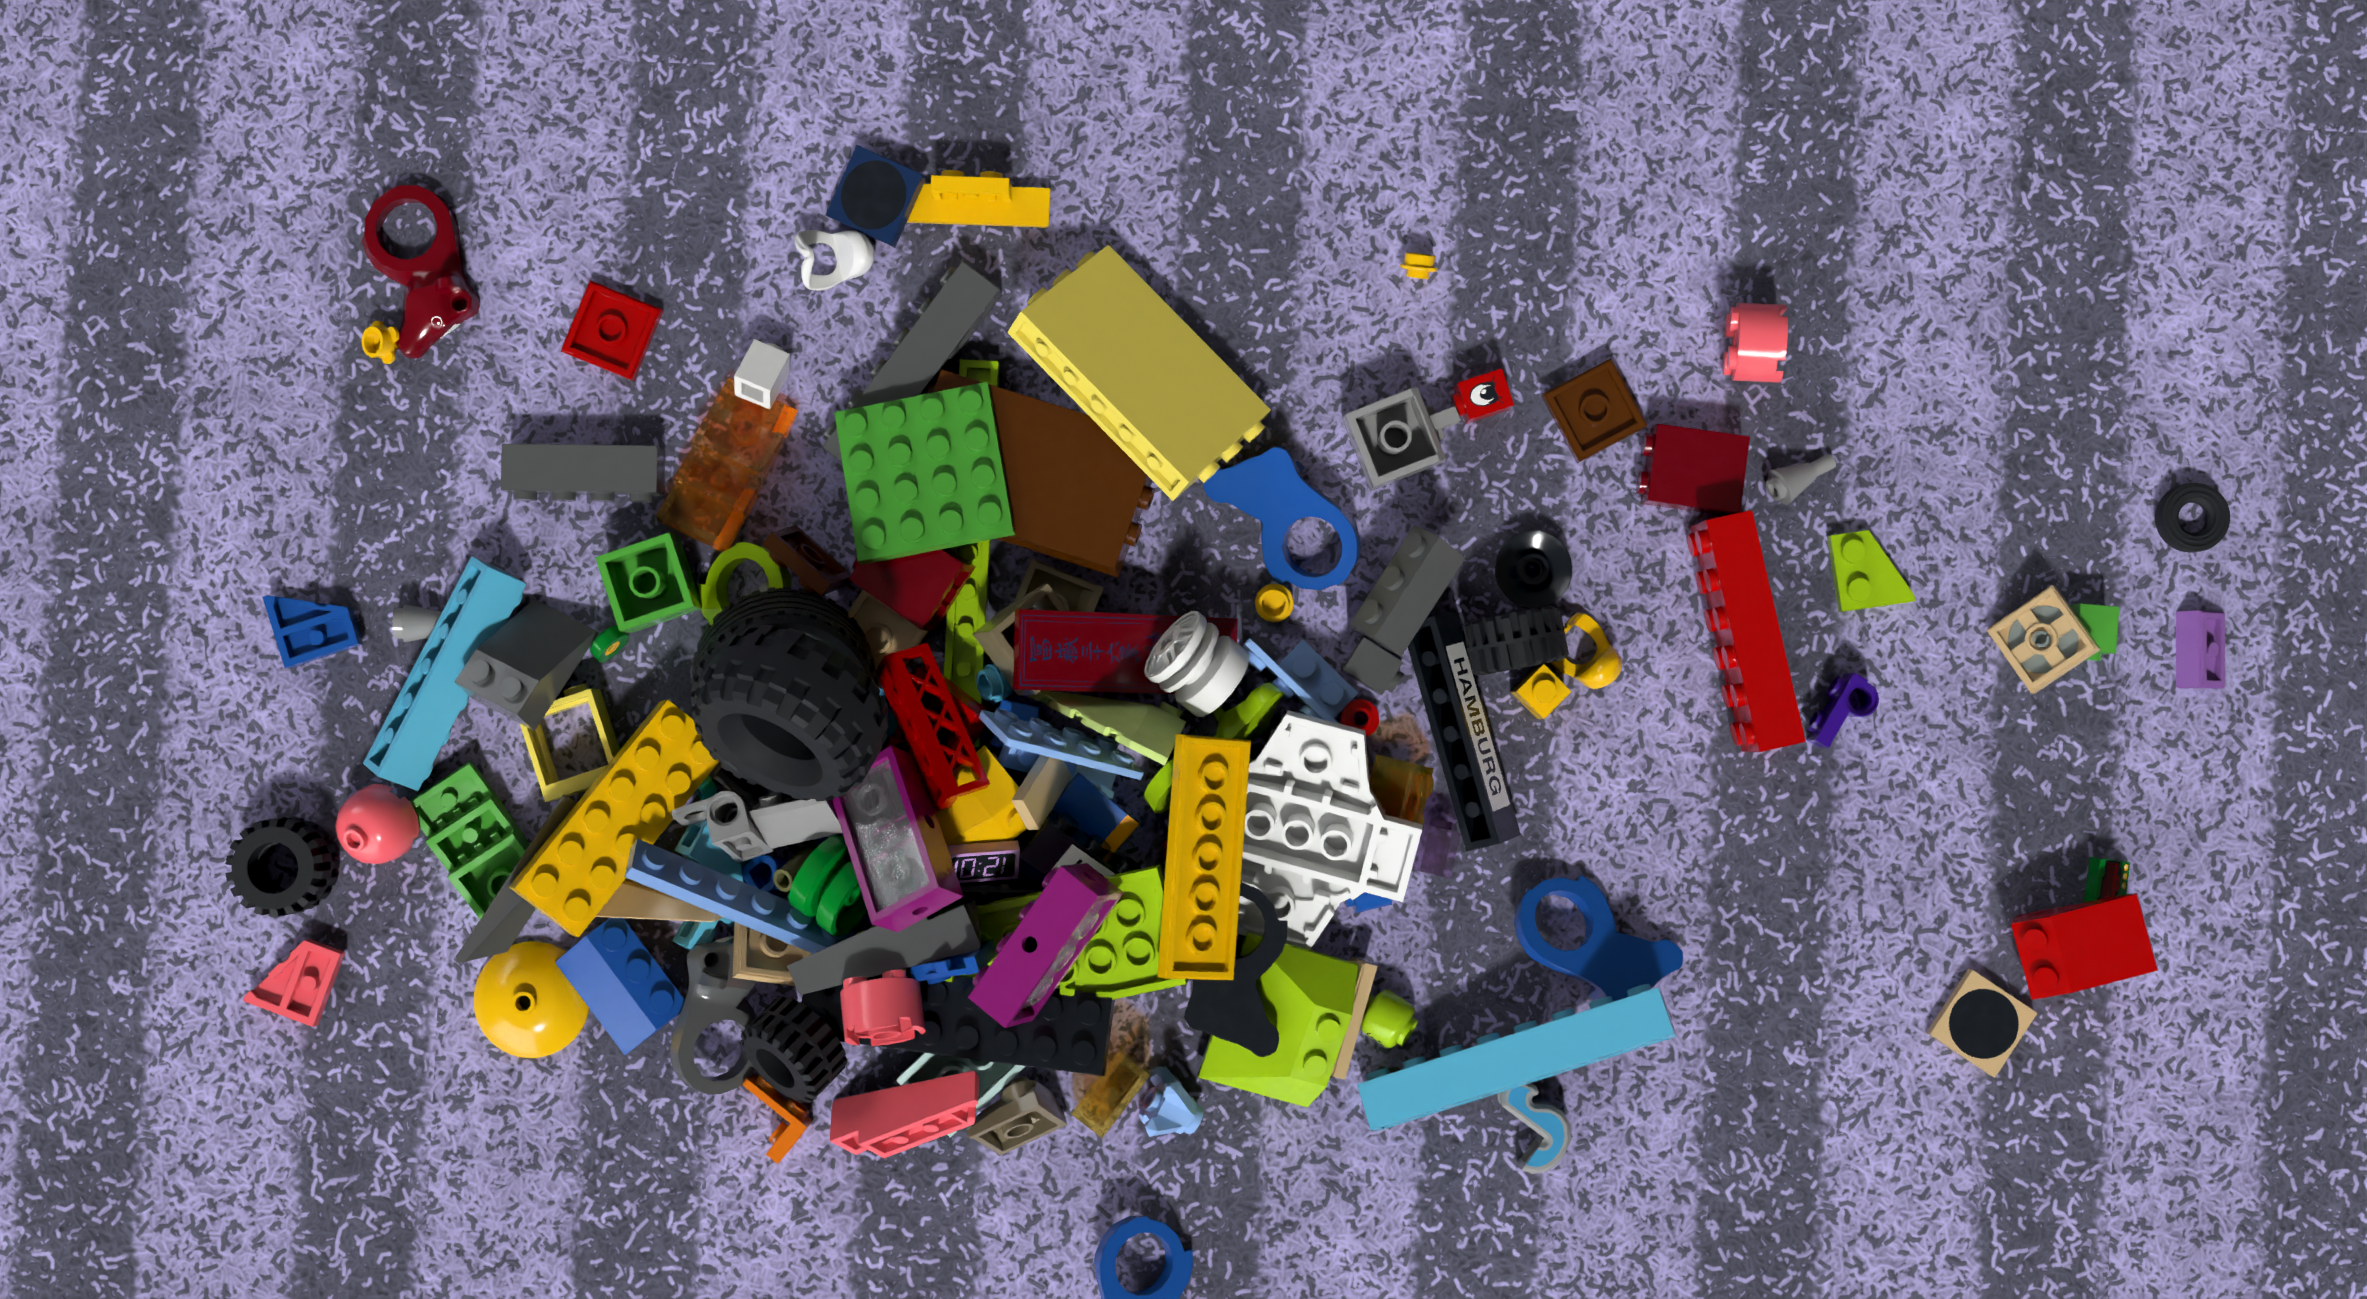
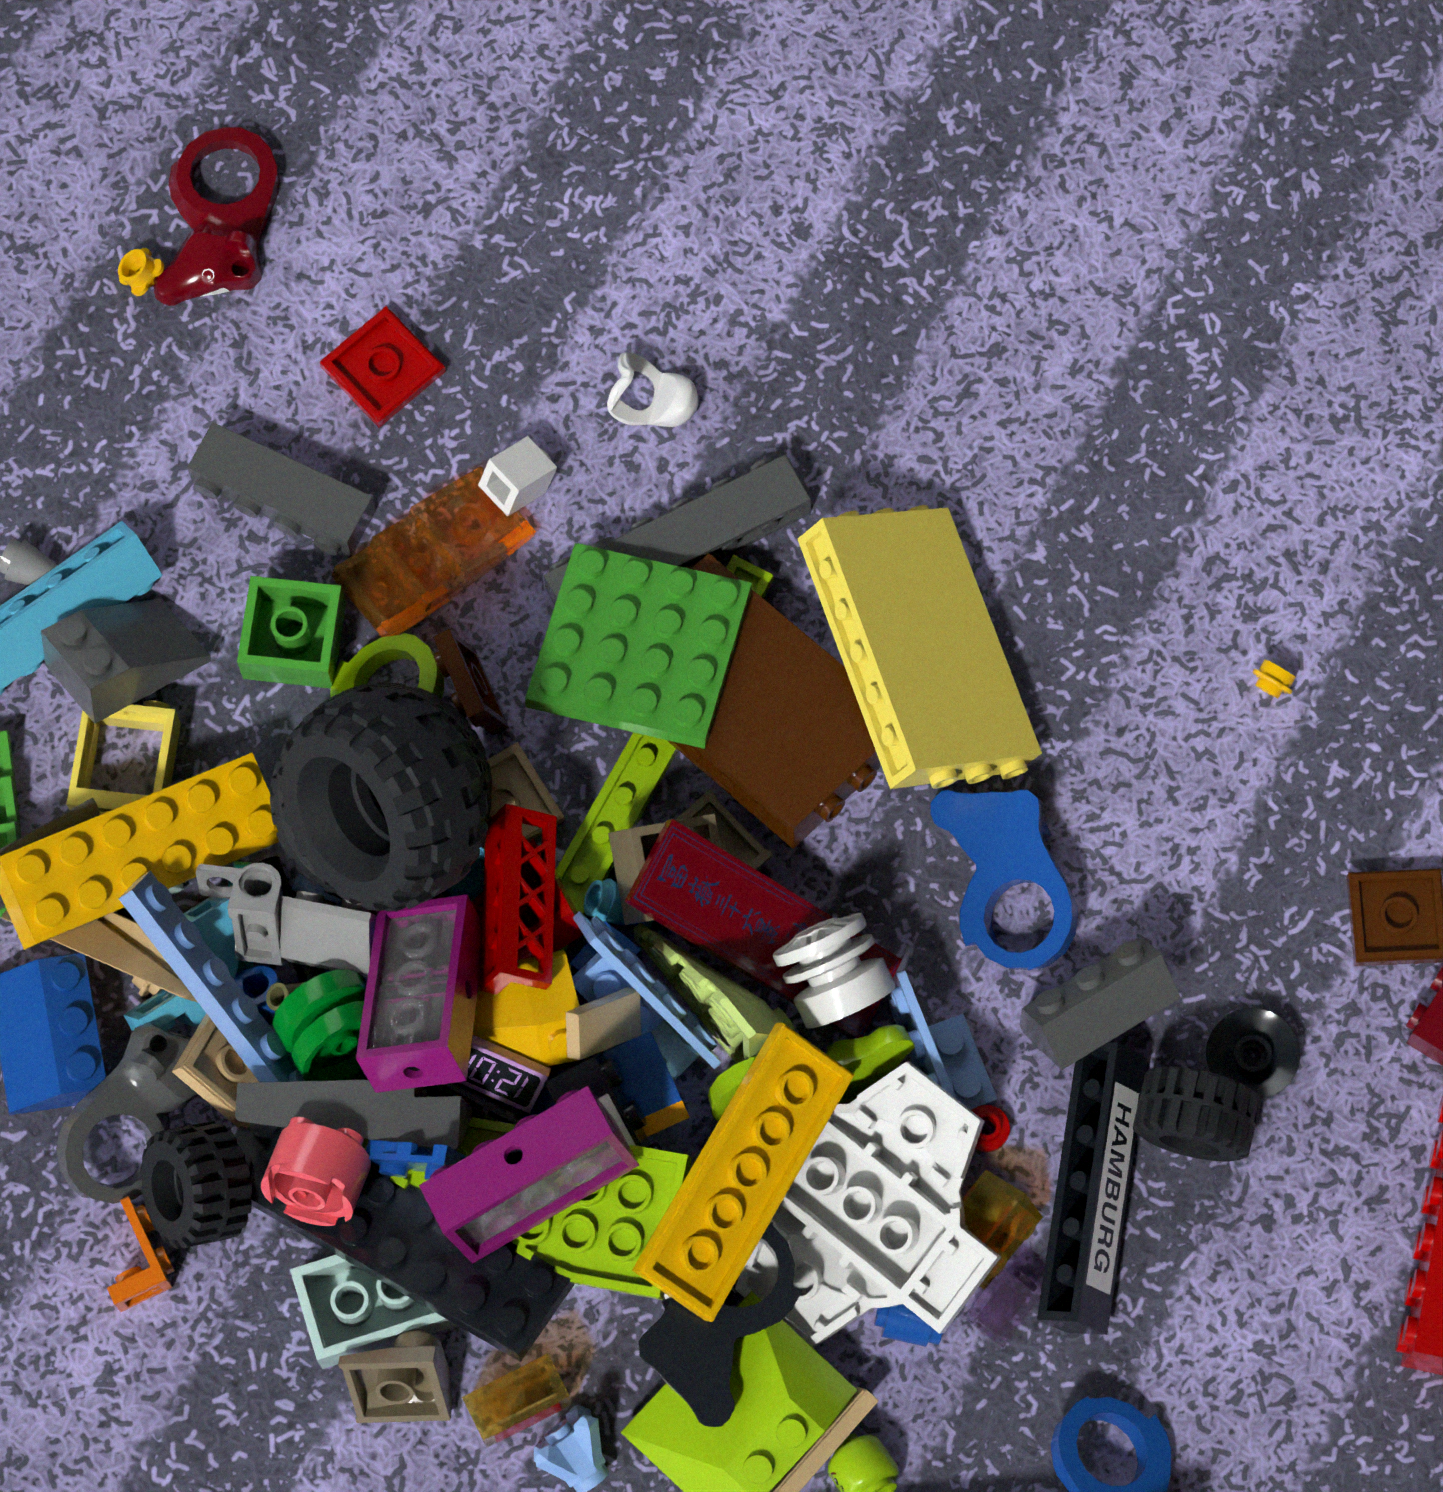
camera: 25 degrees right, 15 degrees down
(608, 644) = (216, 677): green tile -> none
(876, 196) = (726, 353): tile -> none
(904, 1115) = (280, 1312): coral wedge -> none
(916, 585) = (574, 758): dark red brick -> none
(980, 201) = (826, 403): yellow bracket -> none
(1274, 602) = (950, 961): yellow plate -> none
(1373, 667) = (1026, 1077): dark grey brick -> none
(1398, 437) = (1167, 844): light grey hinge -> none
(1482, 396) = (1279, 845): red brick -> none
(1541, 691) = (1200, 1188): yellow brick -> none
(1604, 665) = (1280, 1194): yellow piece -> none

